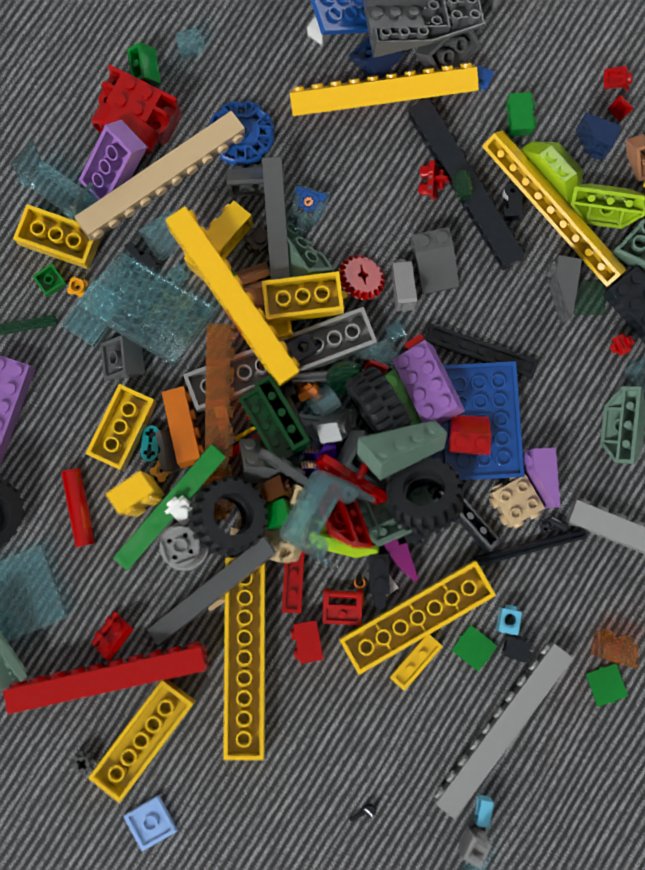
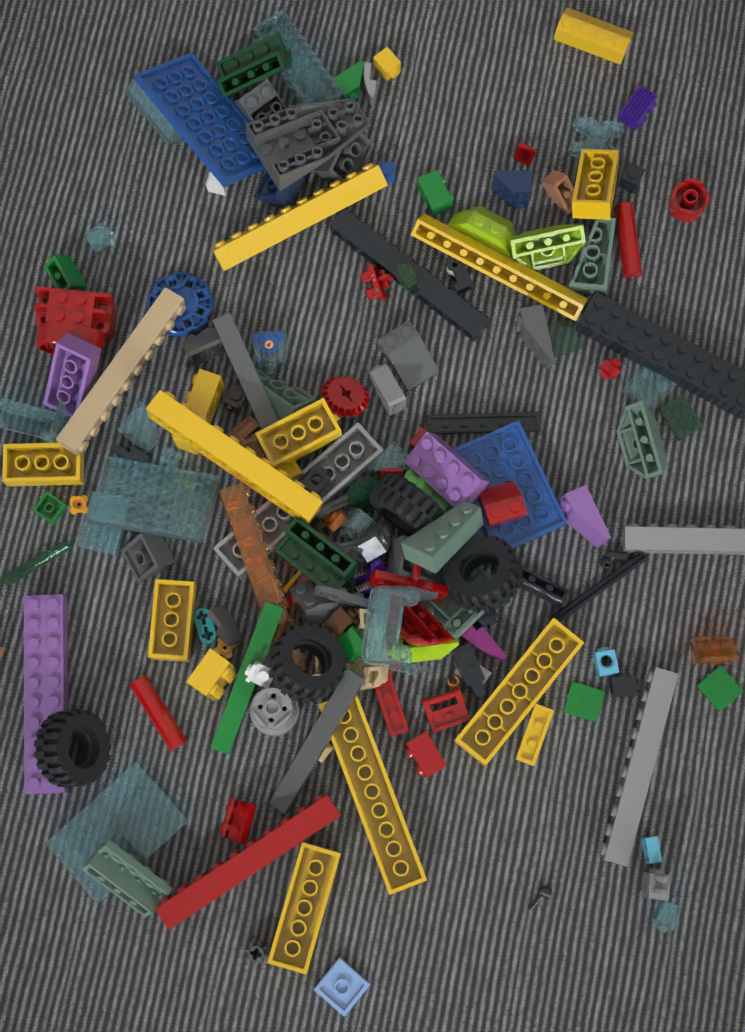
camera: 20 degrees left, 5 degrees down
(182, 426) = (230, 598): orange brick -> none
(395, 331) = (396, 434): clear light blue plate -> none
(516, 501) = (569, 550): tan brick -> none
(617, 78) = (511, 127): red bracket -> none

